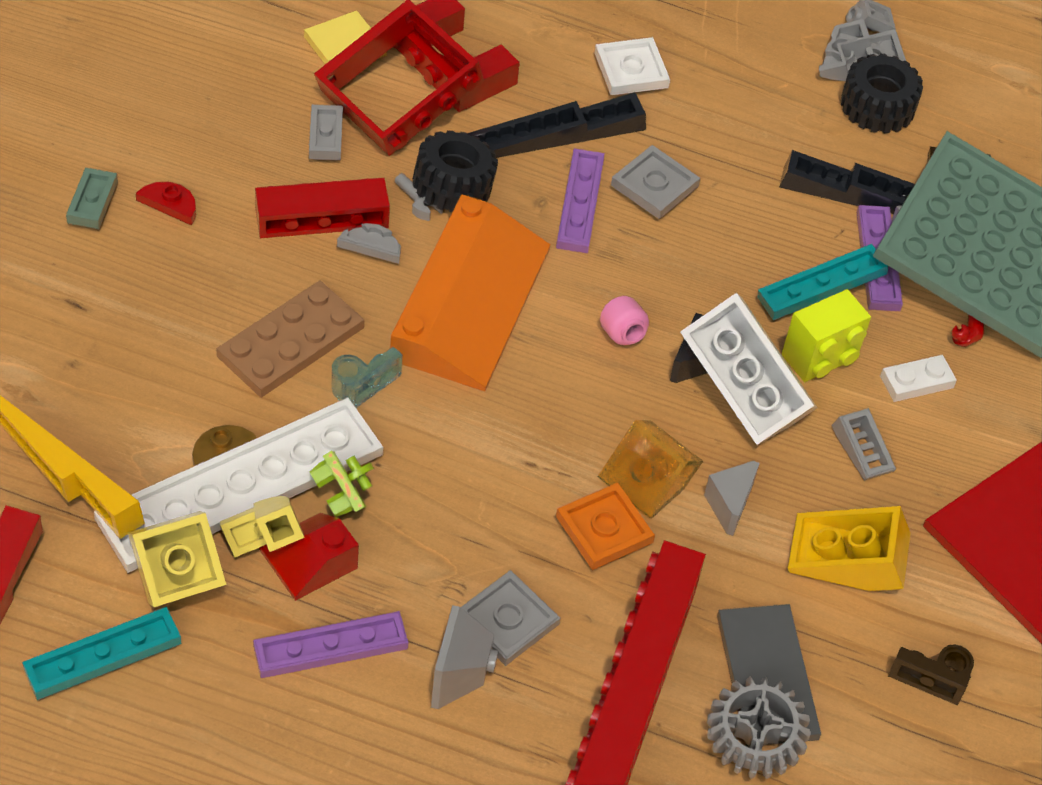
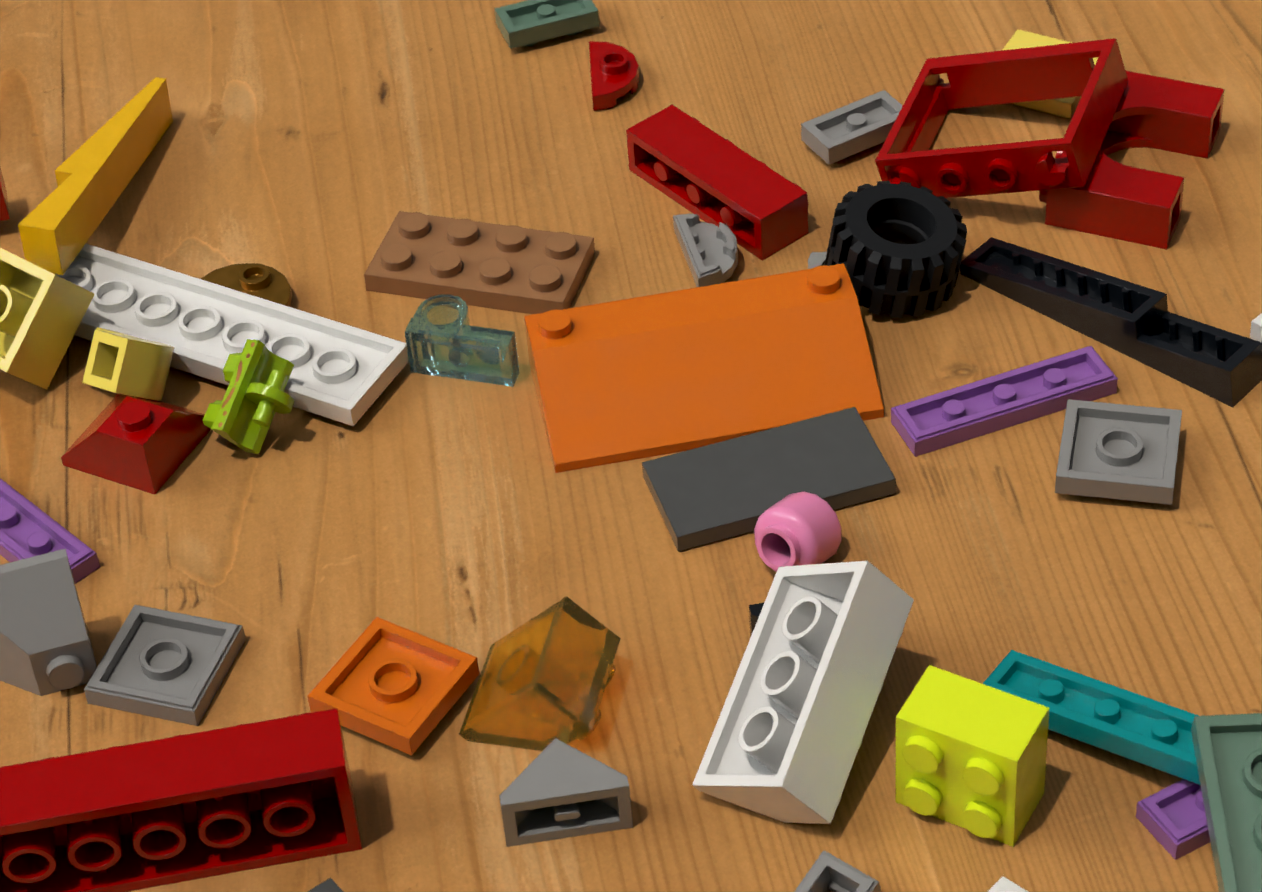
camera: 70 degrees right, 10 degrees down
(564, 313) = (730, 483): none -> dark grey tile

